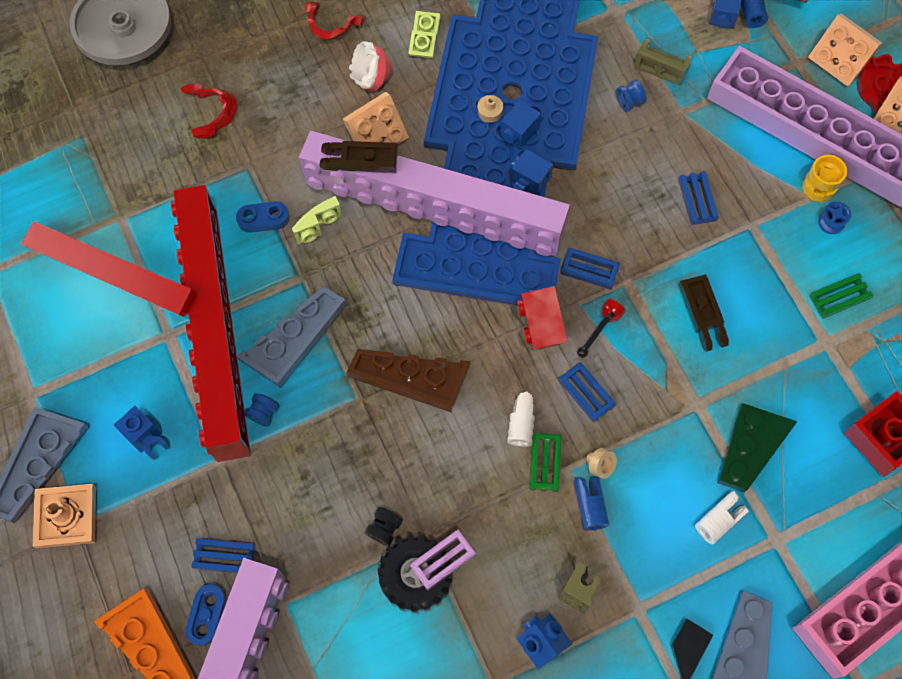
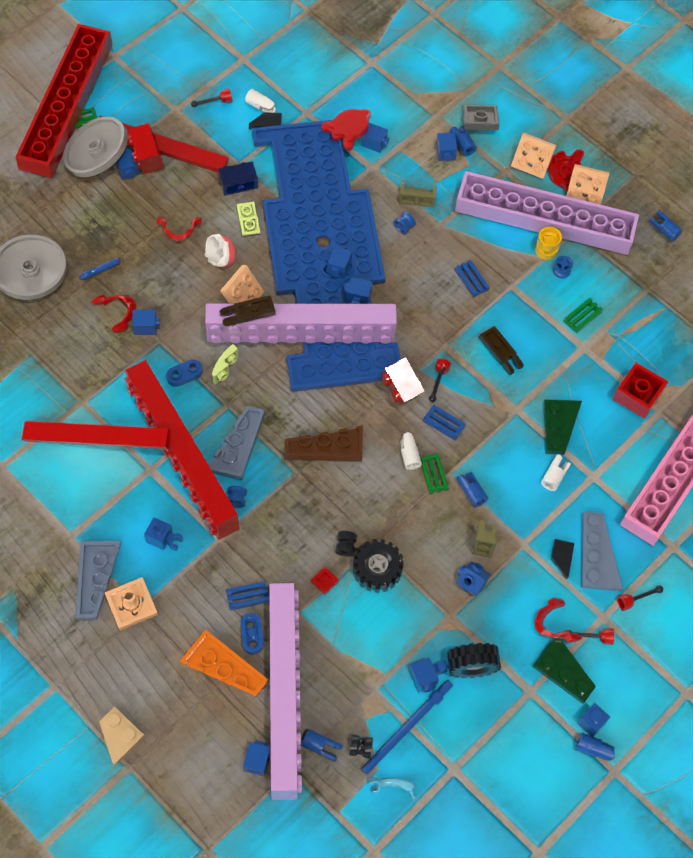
camera: 25 degrees left, 5 degrees down
(214, 48) = (103, 267): none -> blue piece
(237, 134) = (145, 322): none -> blue brick
(336, 570) = (325, 581): none -> red tile
(428, 584) = (384, 562): lavender tile -> none
(490, 108) = (314, 257): tan tile -> none
(587, 277) = (418, 346): blue tile -> none
(602, 462) = (470, 462): tan tile -> none

